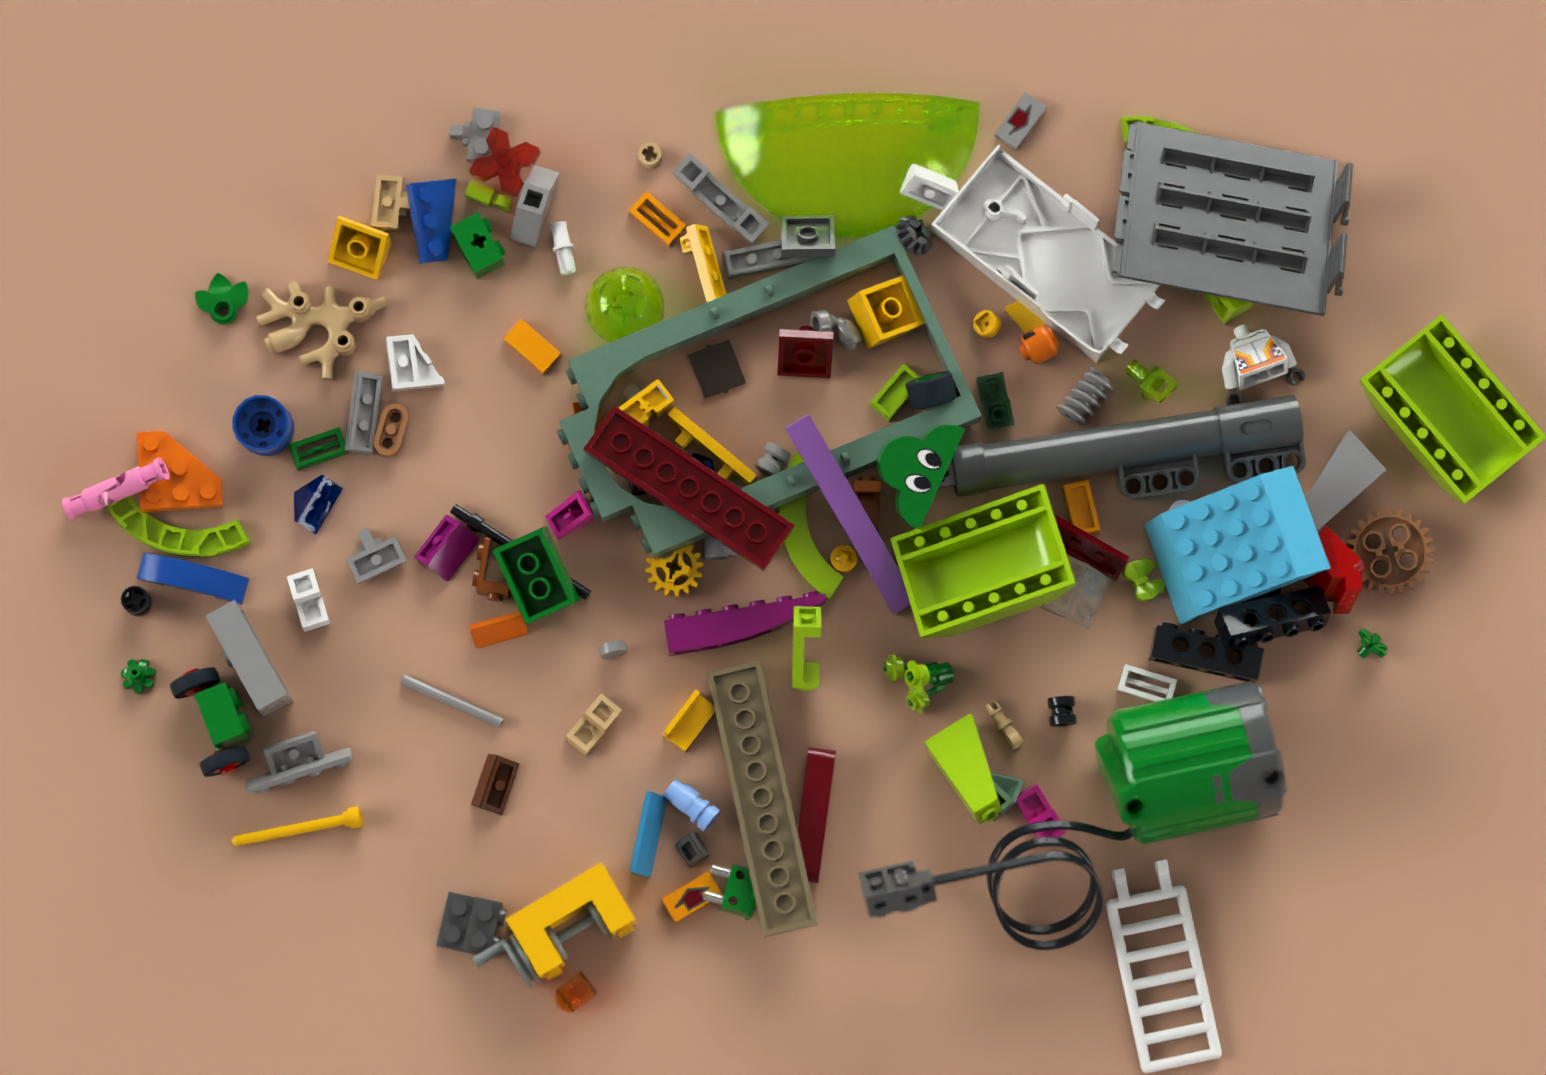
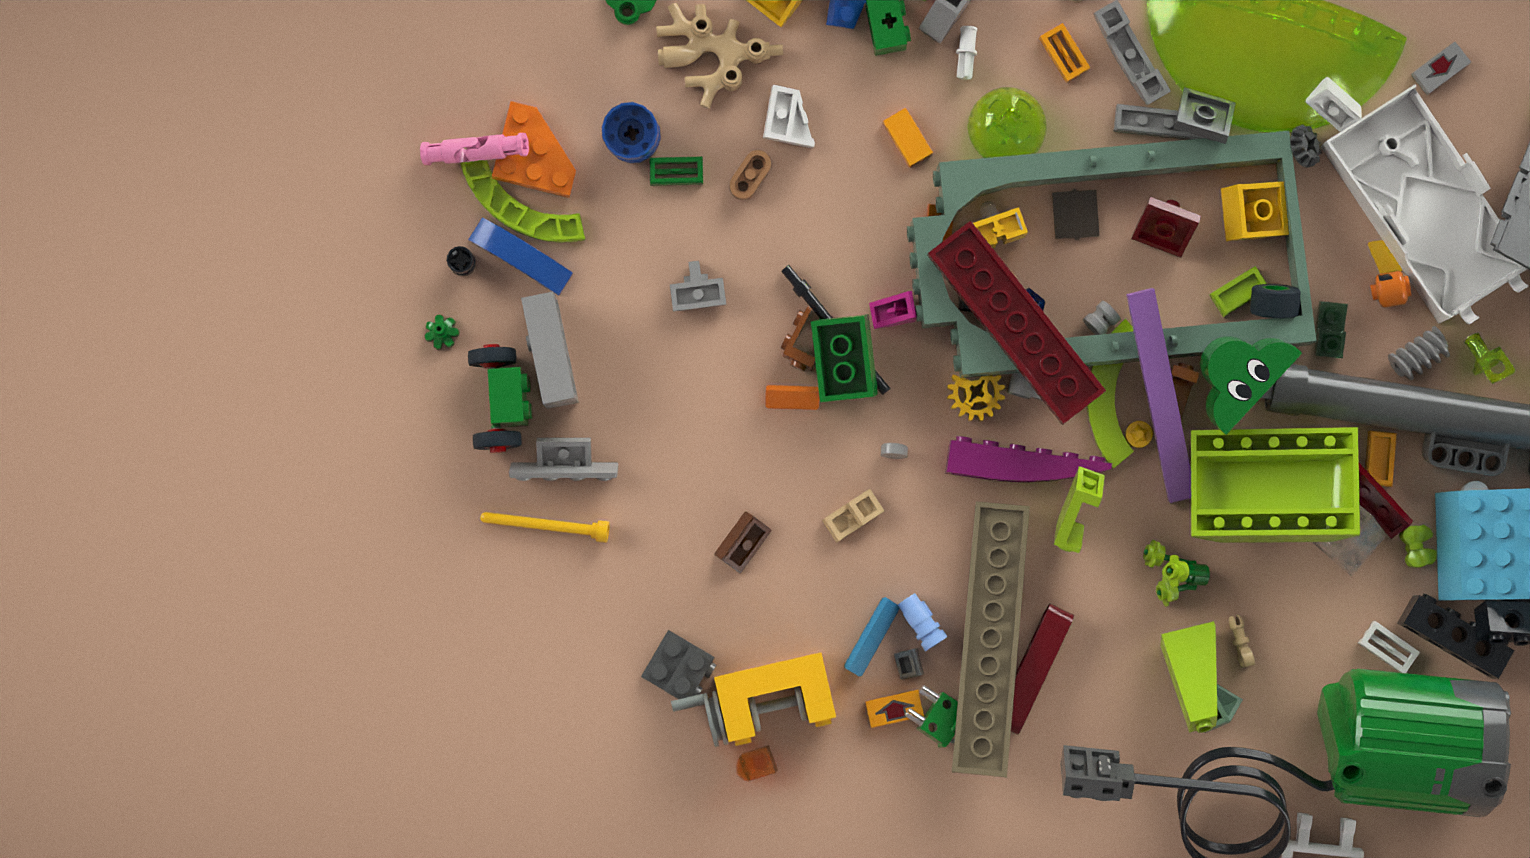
camera: 20 degrees right, 5 degrees up
(308, 600) = (622, 311): white slope -> none
(314, 502) = (657, 220): clear blue slope -> none
(363, 413) = (729, 150): light grey tile -> none
(447, 547) = (767, 303): magenta panel -> none
(452, 701) = (727, 450): light grey piece -> none
(689, 721) = (945, 542): yellow panel -> none
(691, 432) = (1033, 267): yellow hinge -> none
(700, 244) = (1097, 88): yellow hinge -> none
(846, 329) = (1211, 216): light grey arm -> none
(986, 324) = (1346, 253): yellow tile -> none
(1037, 809) = (1246, 734): dark pink slope -> none
(1061, 711) = (1300, 646): black wheel -> none

